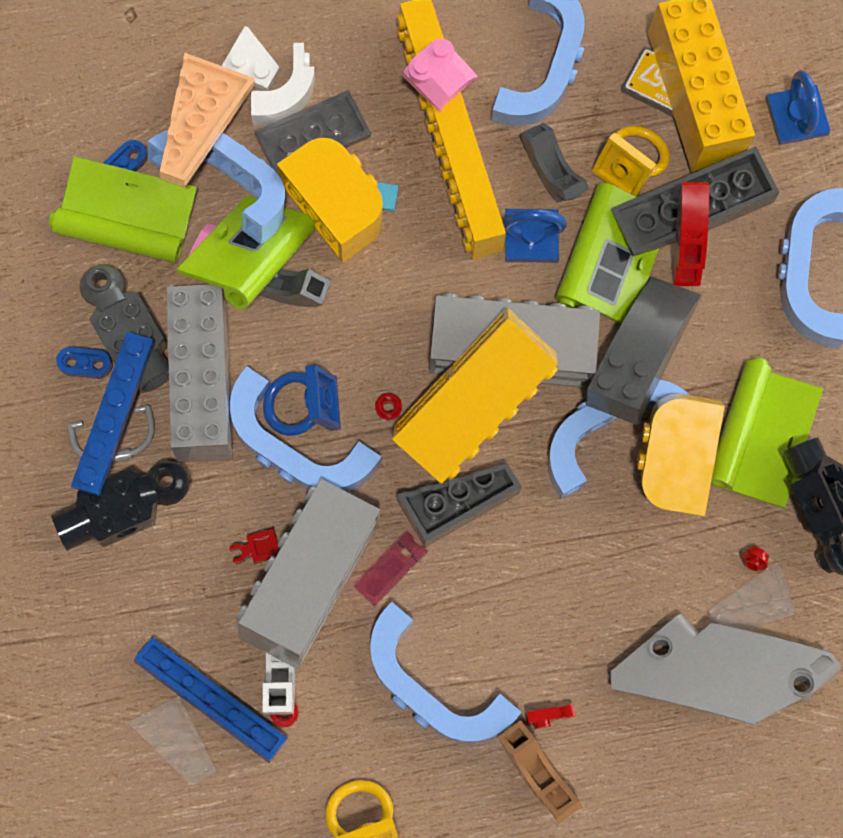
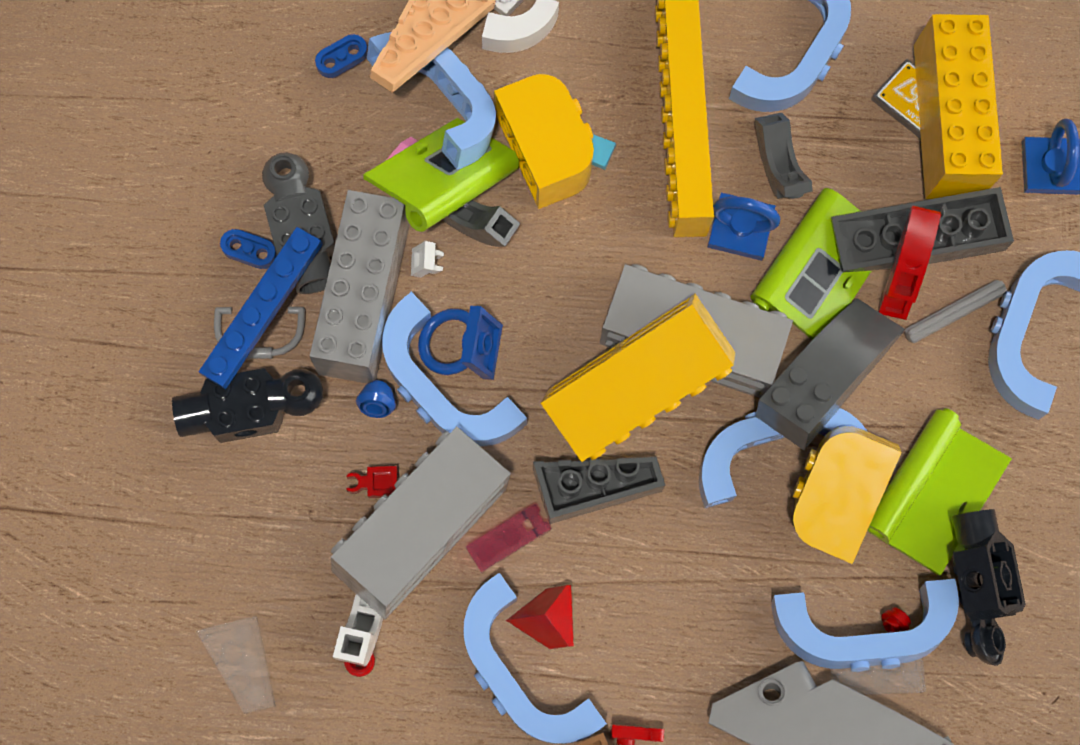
camera: 15 degrees right, 0 degrees up
(138, 218) = (341, 114): lime door -> none
(210, 700) = (287, 629): blue plate -> none
(239, 473) = (376, 399): none -> blue cone
(249, 334) = (424, 259): none -> white tile
(332, 119) = (566, 59): flat silver tile -> none
(388, 398) = (548, 359): red plate -> none
(439, 73) = (684, 35): bright pink slope -> none
(444, 632) = (548, 618): none -> red slope
(625, 165) = (858, 177): yellow tile -> none
(731, 592) = (859, 652): none -> light blue arch
(742, 267) = (955, 311): none -> light grey axle

